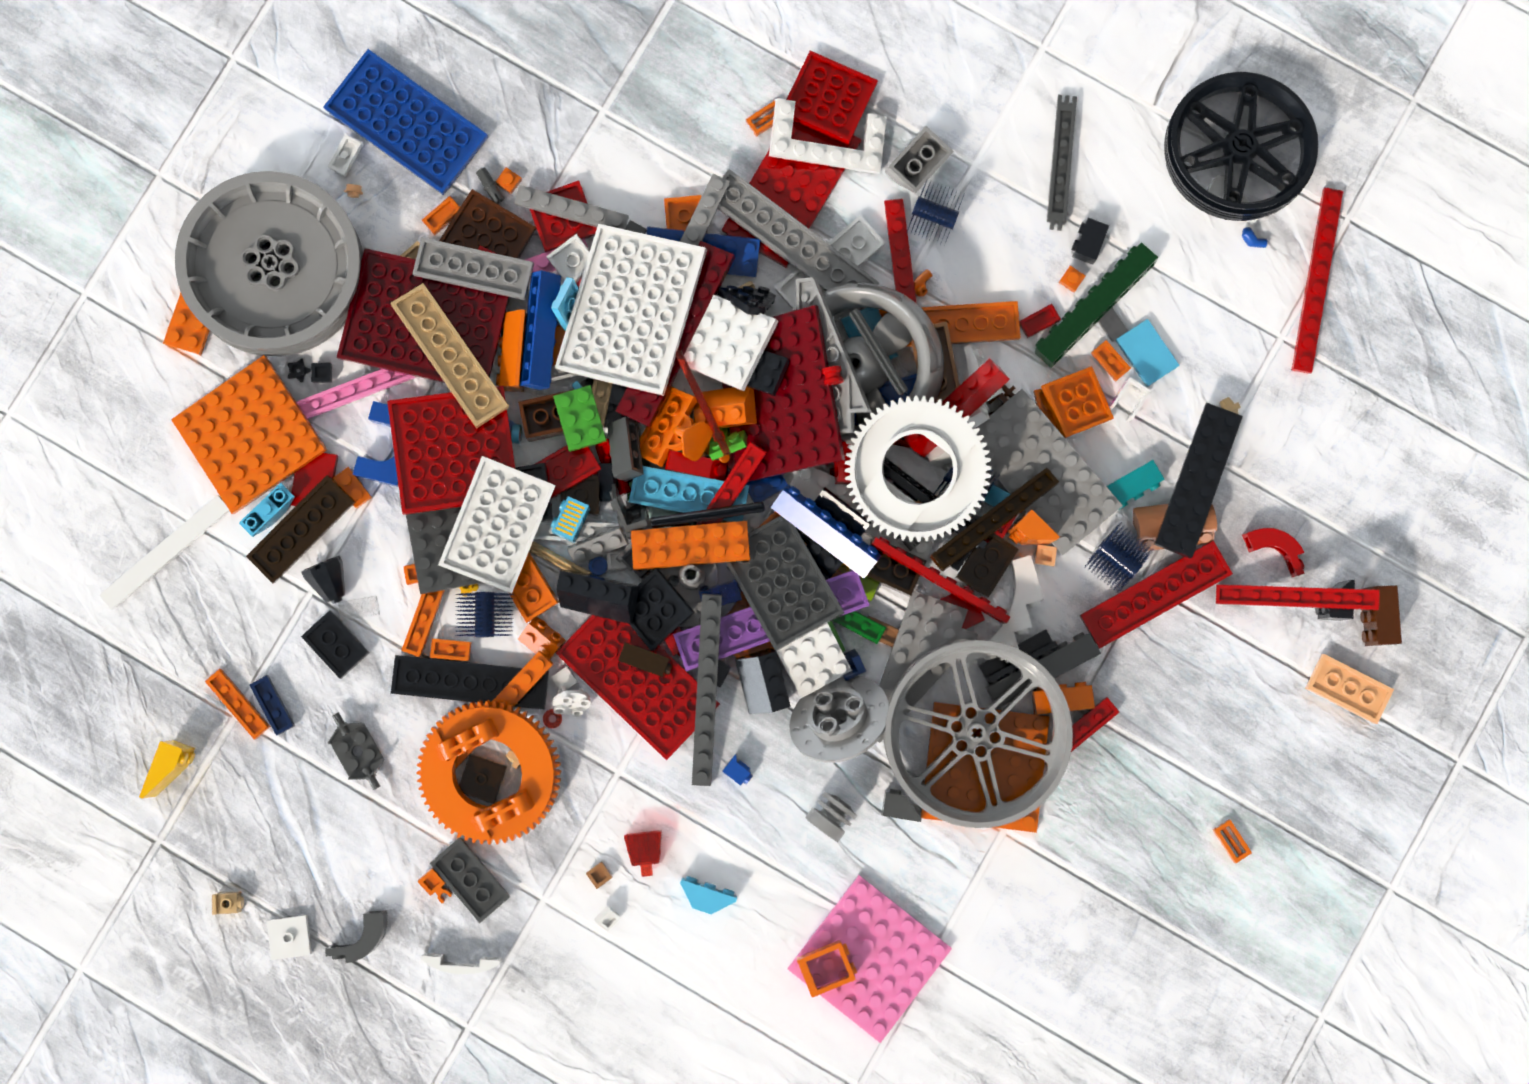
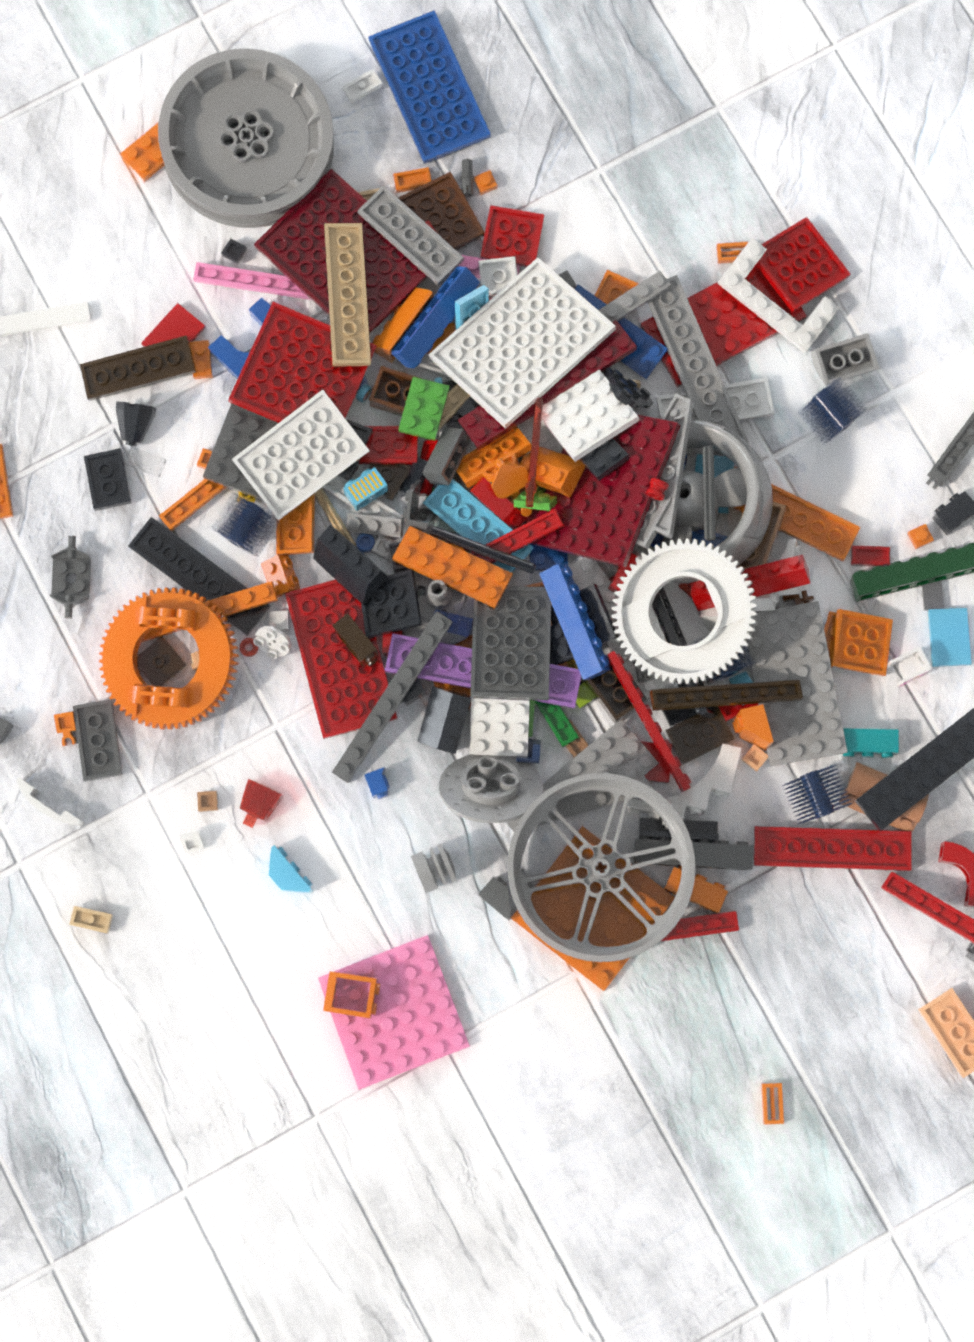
camera: 35 degrees right, 5 degrees down
(249, 434) = (143, 267): orange plate -> none
(268, 511) = (120, 337): medium azure slope -> none
(272, 705) = (25, 499): dark blue plate -> none
(293, 370) = (216, 234): black plate -> none
(353, 190) = (351, 118): light nougat plate -> none
(450, 649) = (199, 539): orange plate -> none
(561, 1038) = (91, 919): none -> tan plate
(569, 208) = (521, 232): light grey plate -> none
(899, 247) = (785, 425): red plate -> none
(920, 283) = (784, 465): orange arm -> none
(1110, 360) = (912, 625): orange plate -> none

